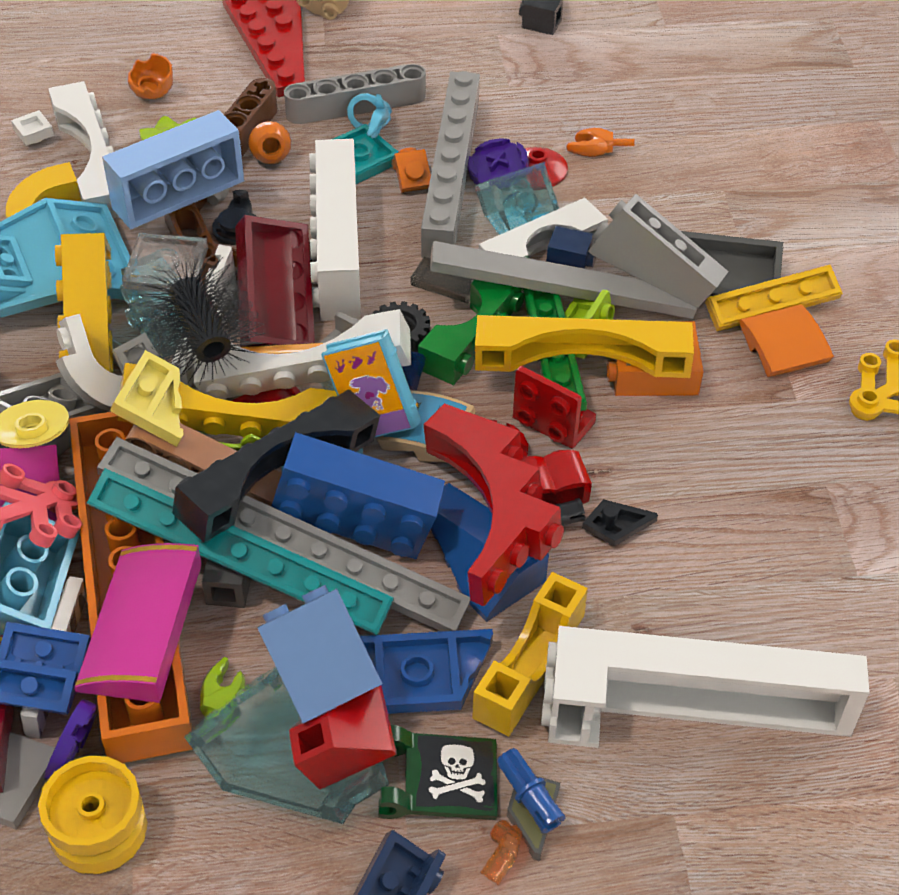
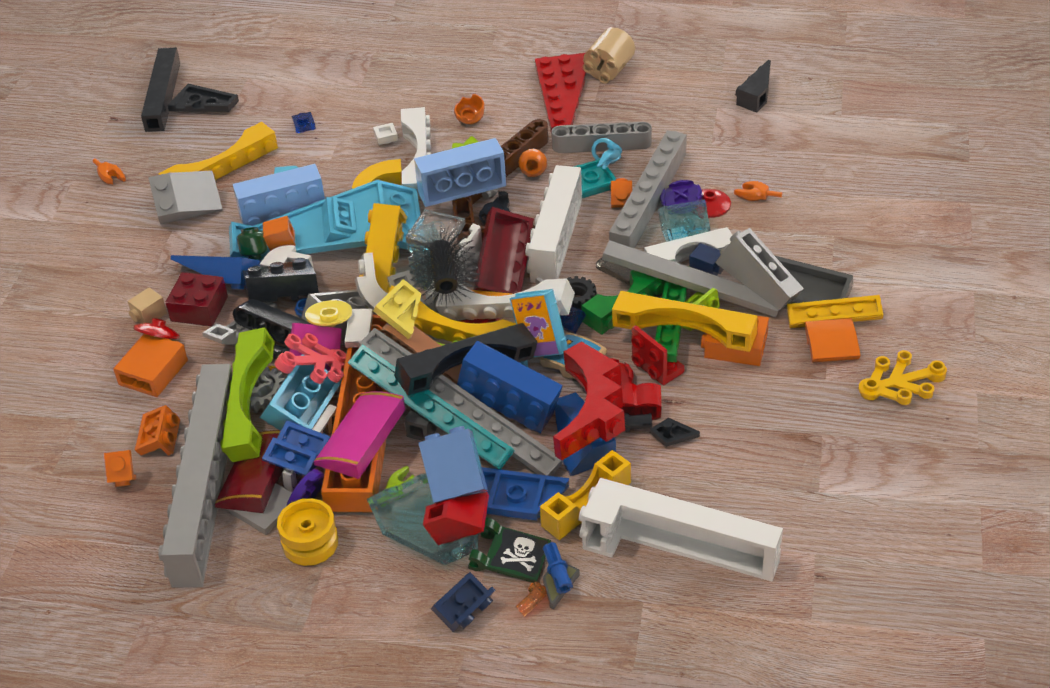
camera: 20 degrees right, 5 degrees down
(85, 439) = (358, 327): none -> white tile

